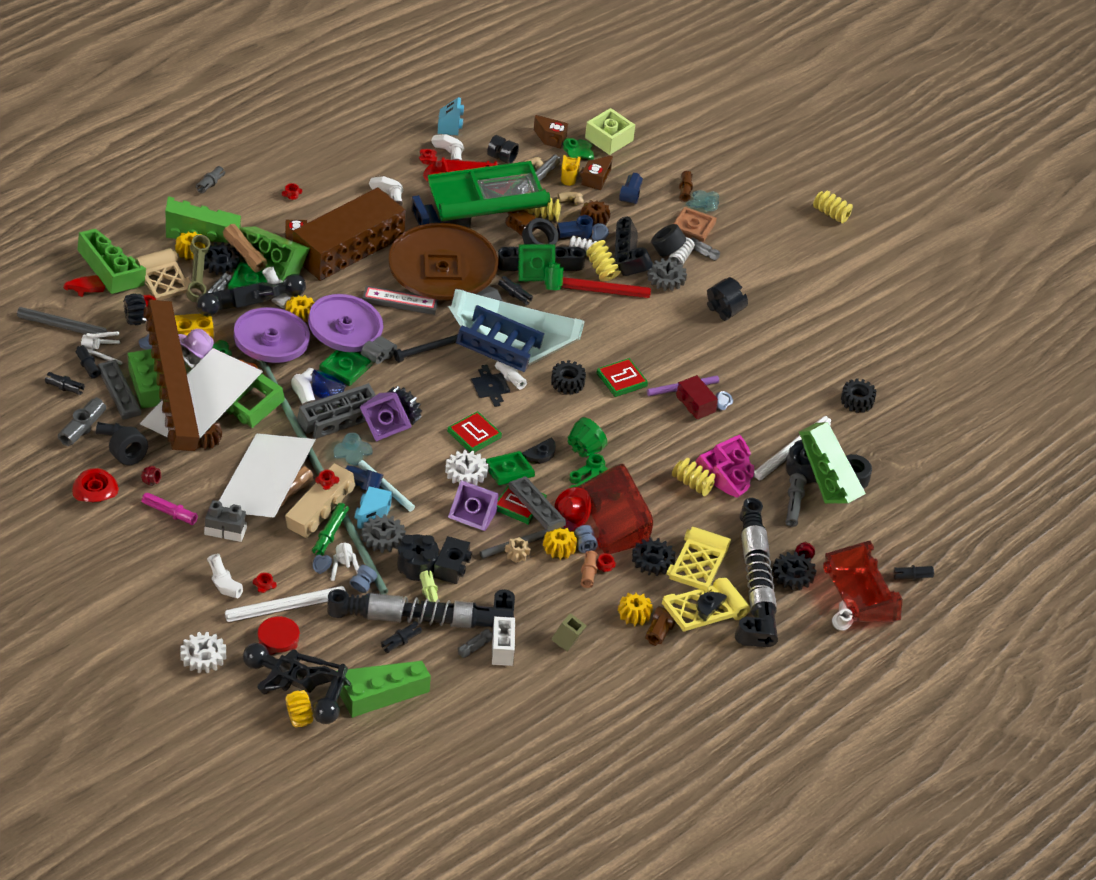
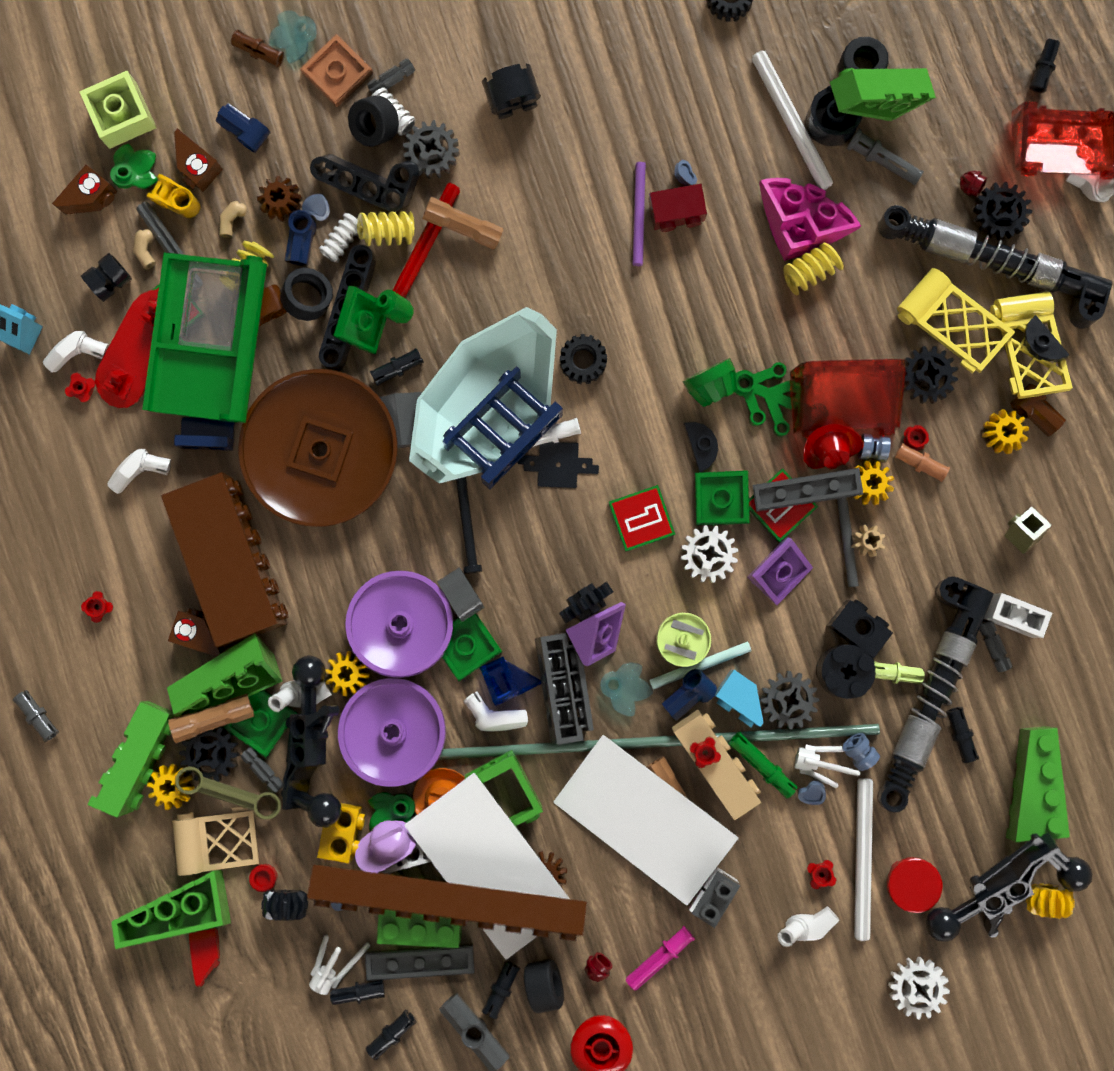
camera: 60 degrees left, 40 degrees up
(60, 322) = (268, 1007): dark grey axle -> none
(400, 300) = (361, 534): tile -> none
(400, 463) = (683, 639): none -> yellowish green piece
(622, 377) = (600, 287): tile -> none
(626, 296) = (462, 223): none -> medium nougat axle

